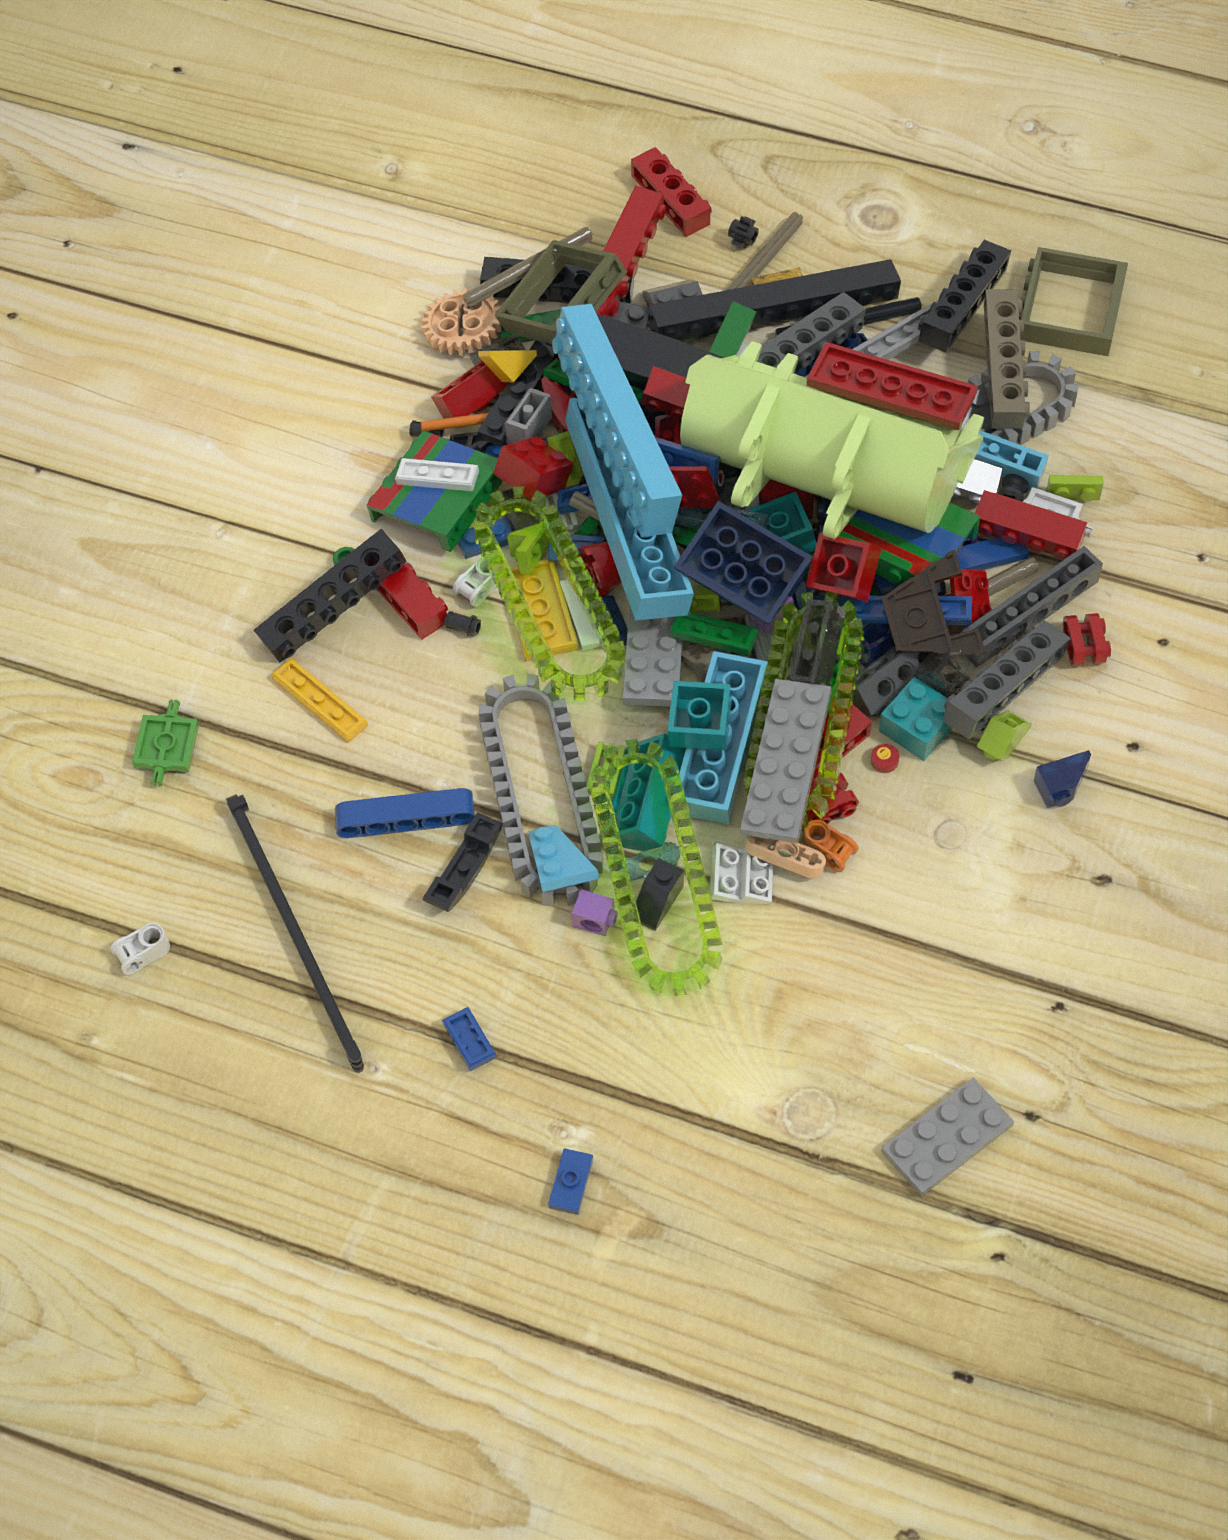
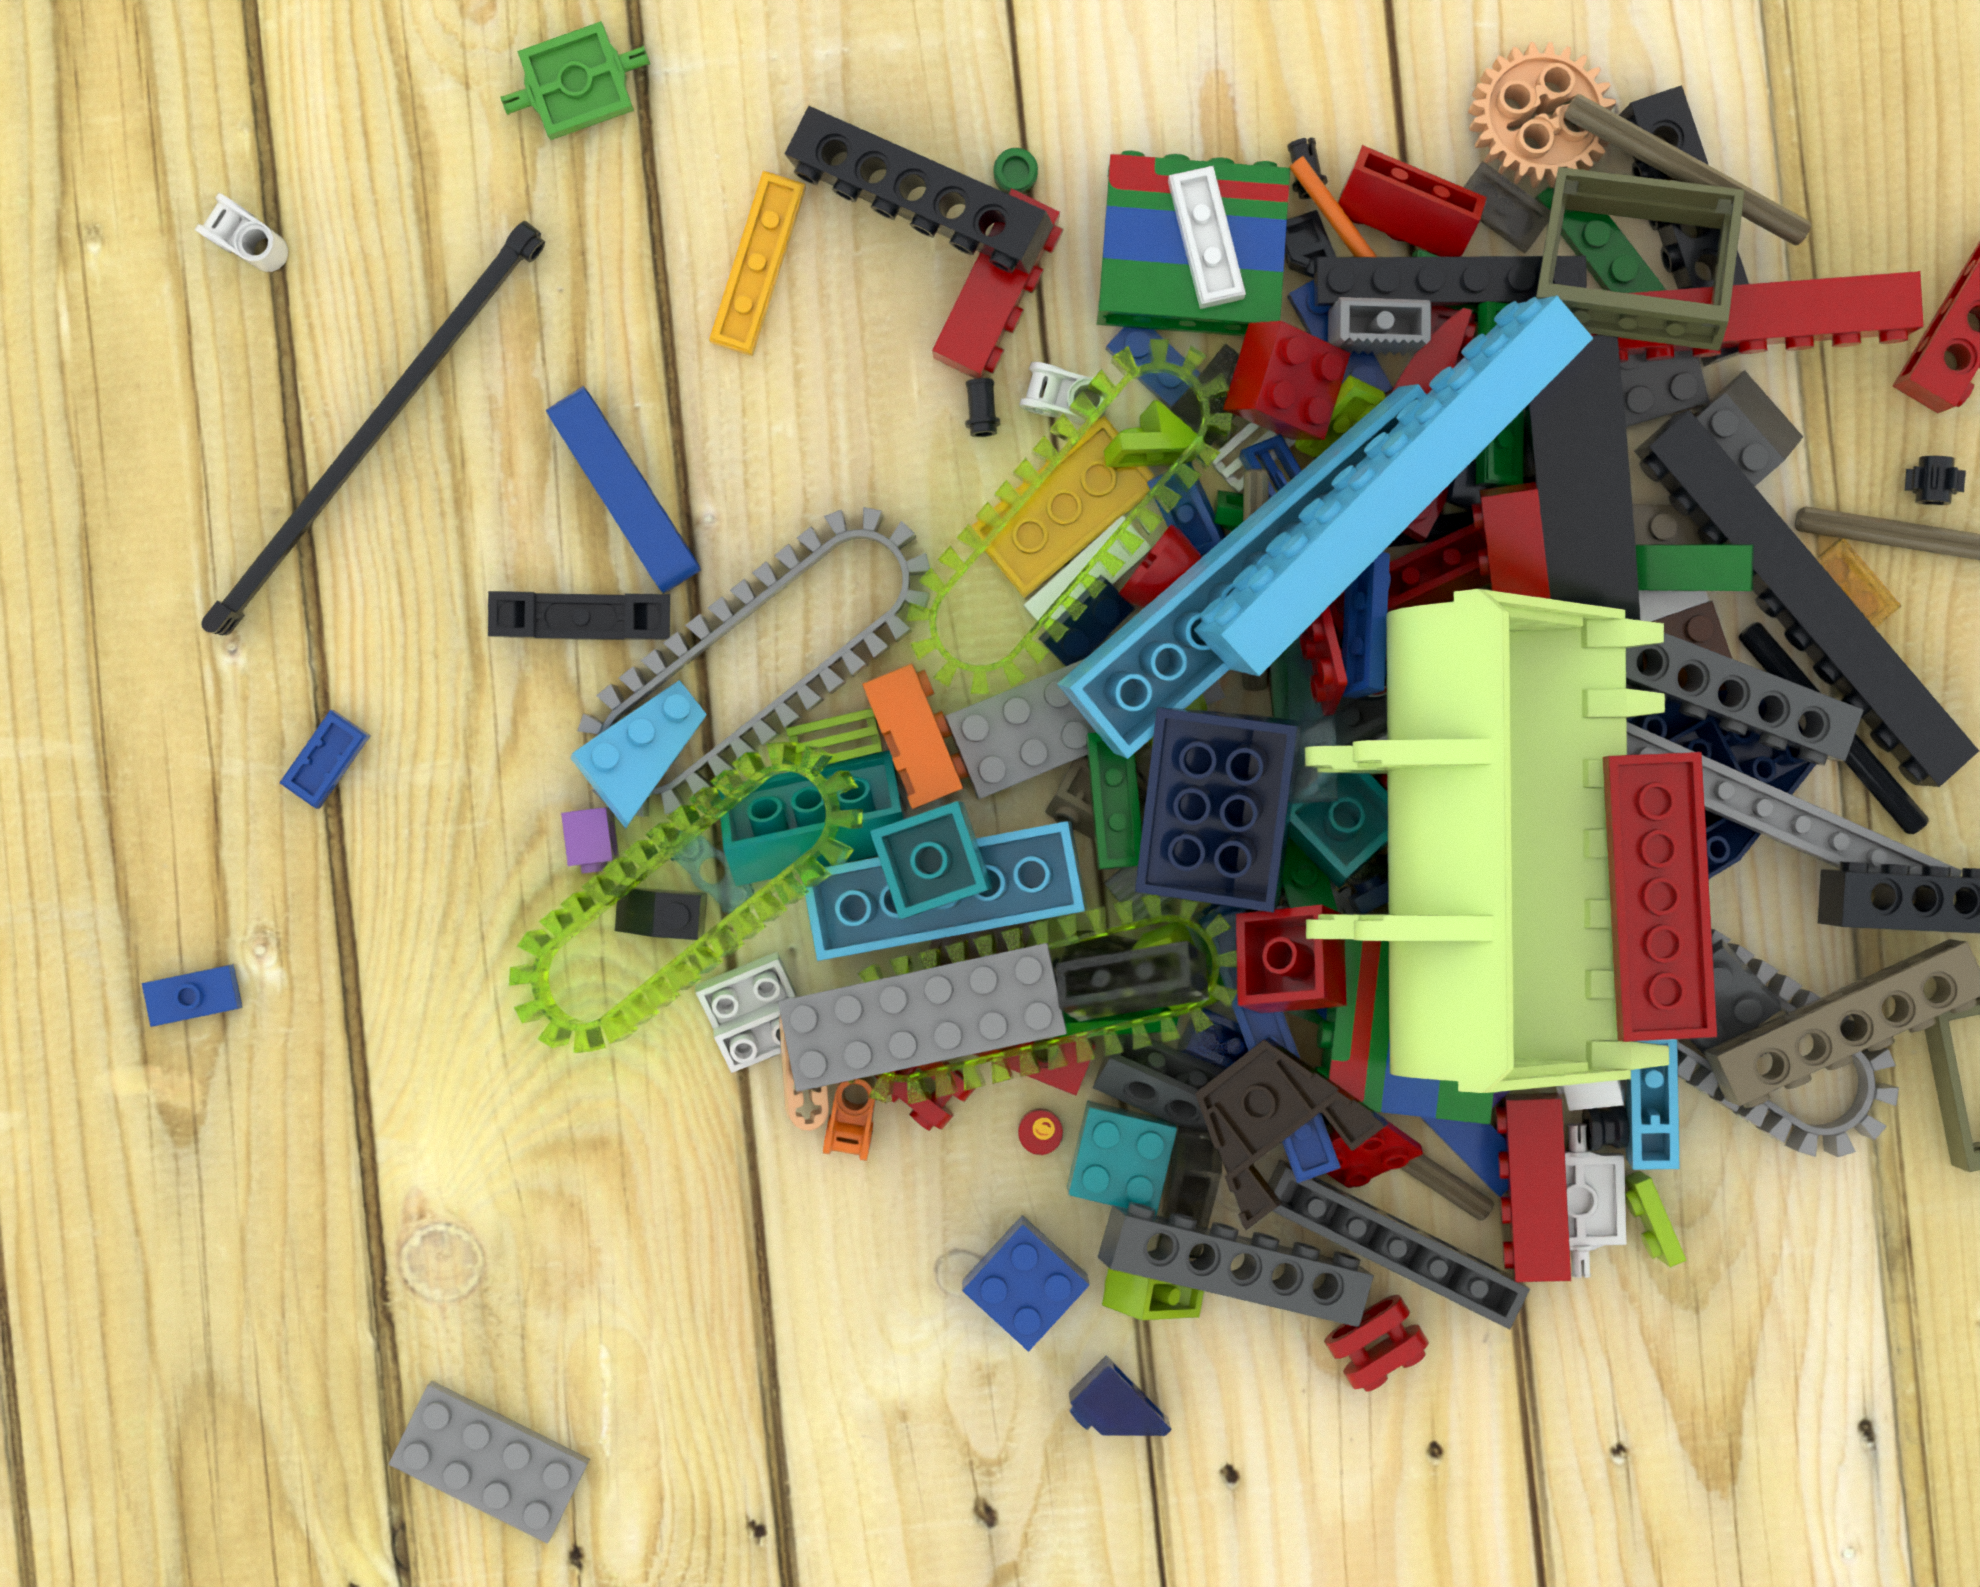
camera: 65 degrees right, 30 degrees up
(507, 364) = (1470, 240): yellow slope -> none
(625, 719) = (915, 735): none -> orange wedge
(969, 794) = (1025, 1283): none -> blue brick

